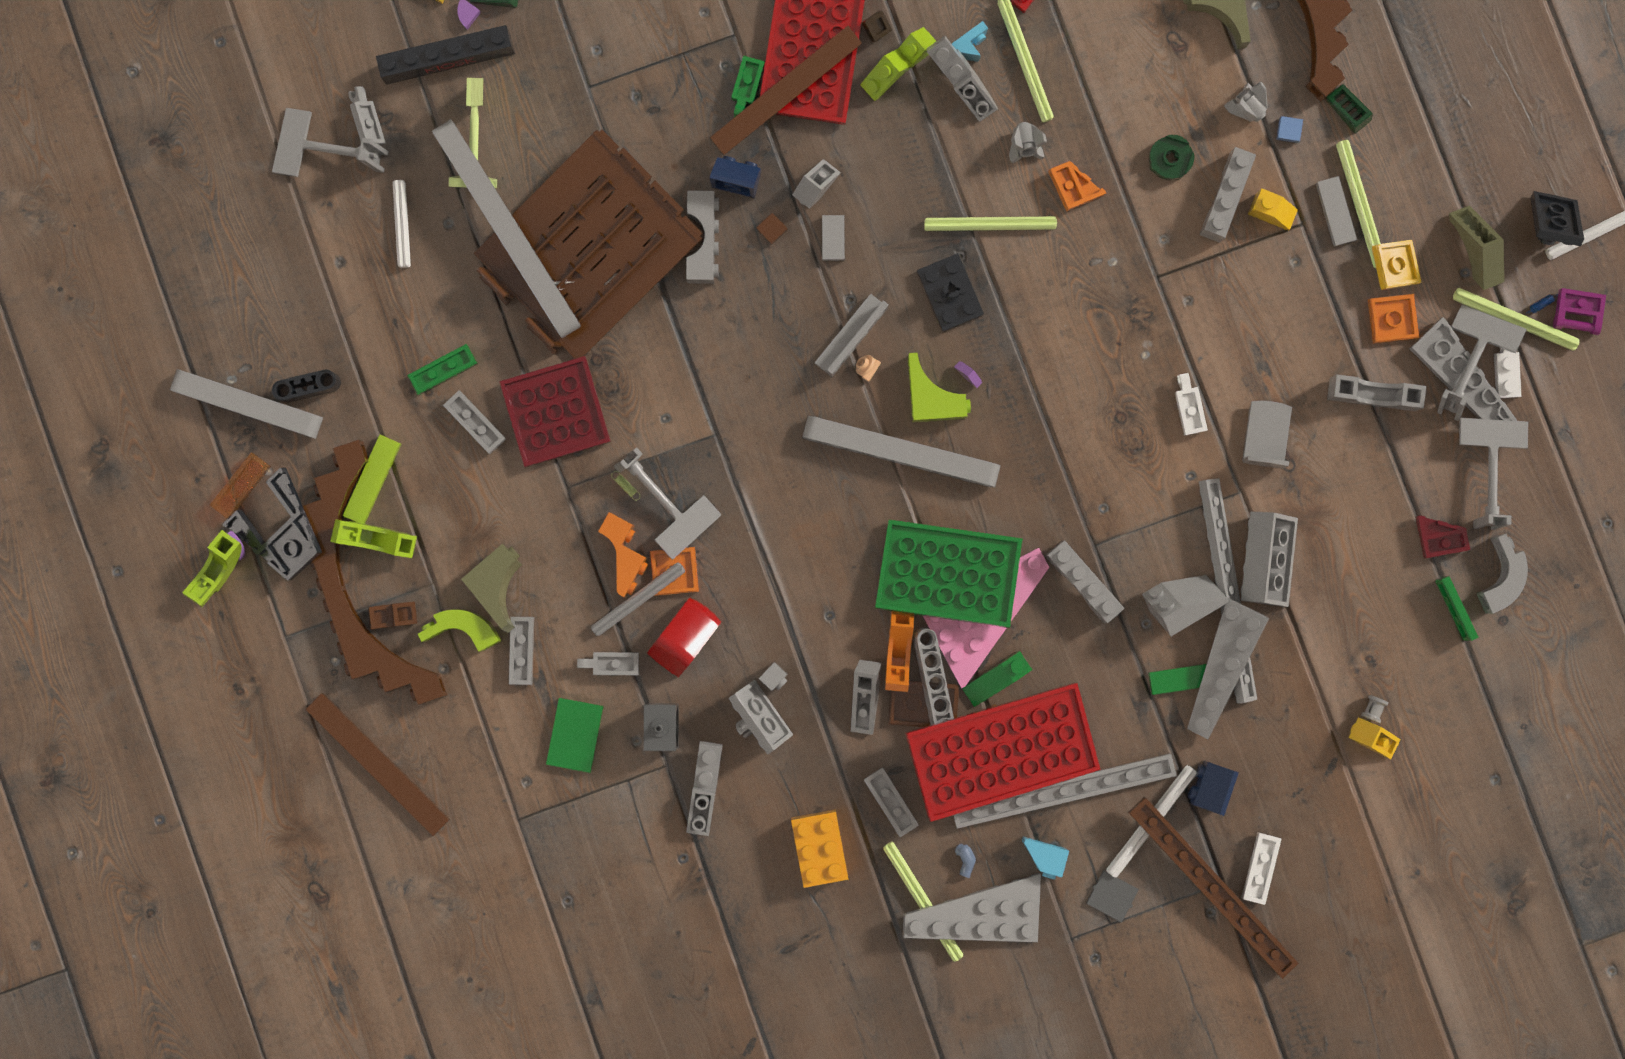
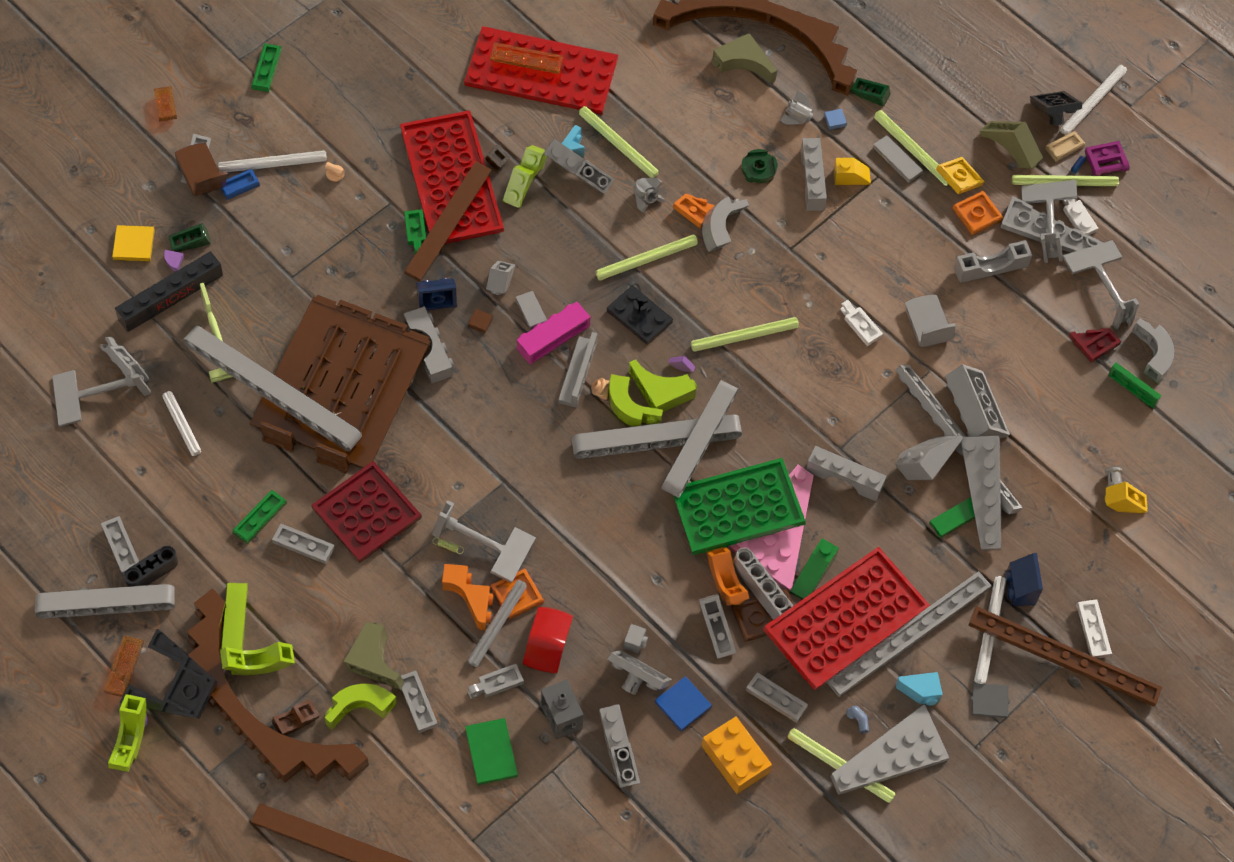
camera: 25 degrees left, 25 degrees down
(285, 344) = (120, 543): none -> light grey plate
(792, 766) = (683, 703): none -> blue tile
(844, 278) = (553, 332): none -> dark pink brick
(880, 400) = (628, 410): none -> lime arch
(943, 480) = (699, 439): none -> light grey beam
(1055, 365) = (744, 334): none -> yellowish green axle
(1082, 216) = (714, 223): none -> light grey arch
(1540, 273) = (1065, 146): none -> tan tile

